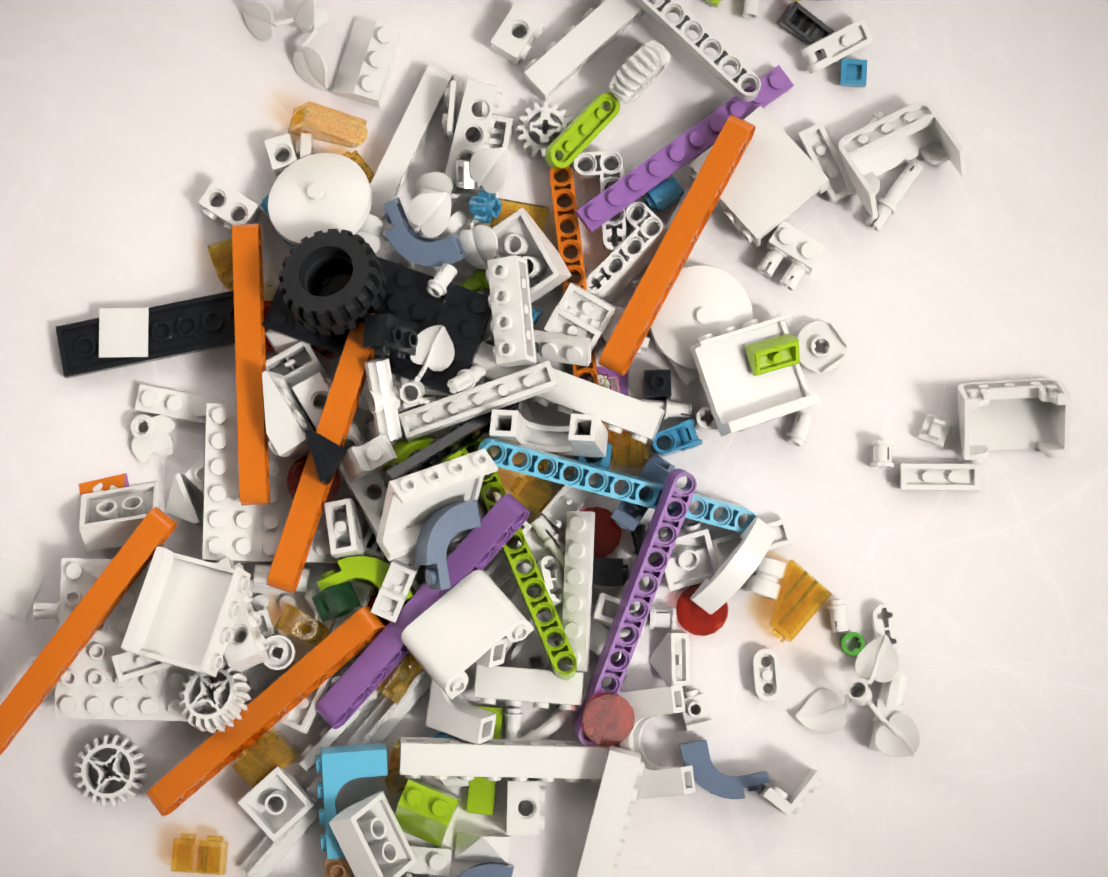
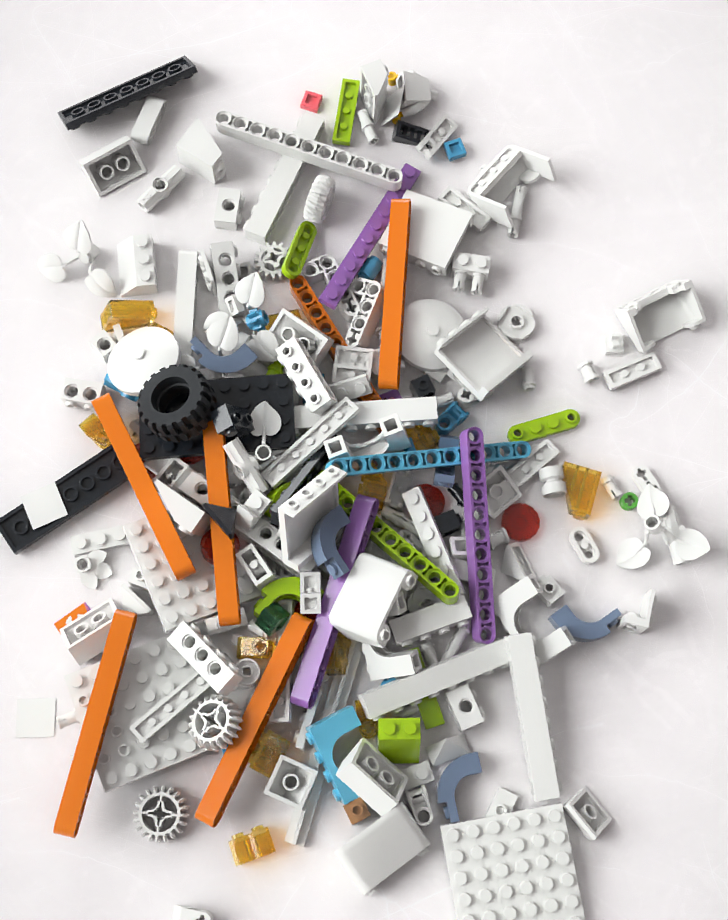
camera: 30 degrees left, 10 degrees down
(186, 612) = (170, 671): white panel -> none
(438, 285) = (249, 378): white pin -> none
(466, 378) = (296, 430): white axle -> none
(607, 719) = (494, 618): clear red tile -> none
(737, 568) = (532, 482): white slope -> none
(773, 354) = (489, 336): lime slope -> none
(790, 500) = (544, 426): none -> lime plate

